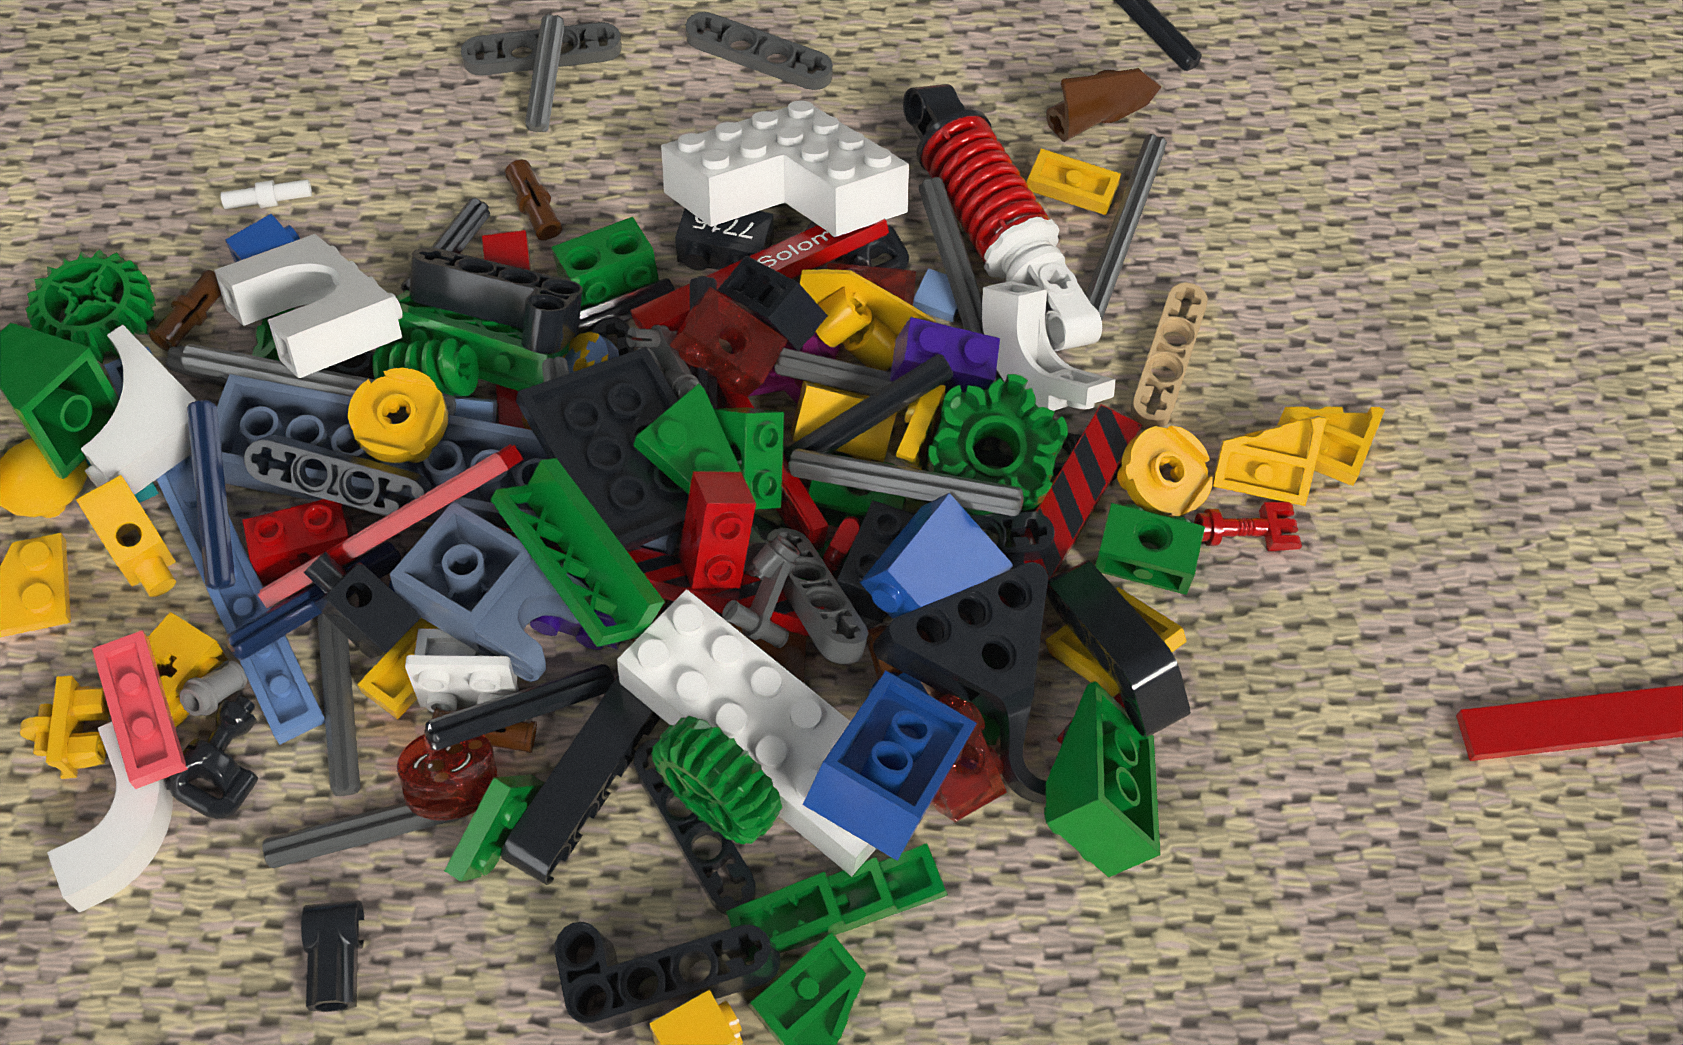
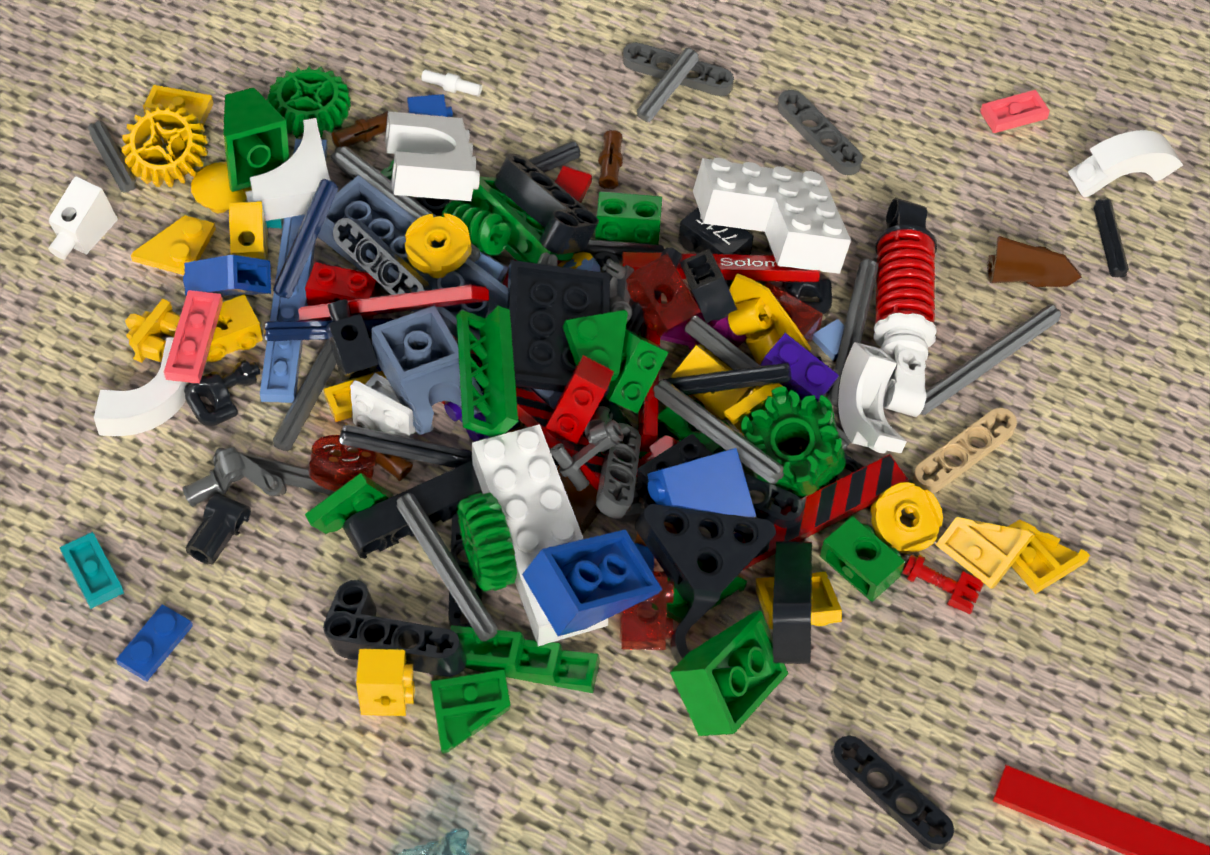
camera: 30 degrees right, 5 degrees down
(132, 602) = (228, 276): none -> blue slope
(203, 694) = (235, 349): light grey pin -> none
(299, 863) = (231, 468): none -> dark grey pin
(677, 839) = (447, 567): none -> dark grey axle
(1073, 181) = (976, 310): yellow plate -> none
(1363, 809) = (897, 788): none -> black beam

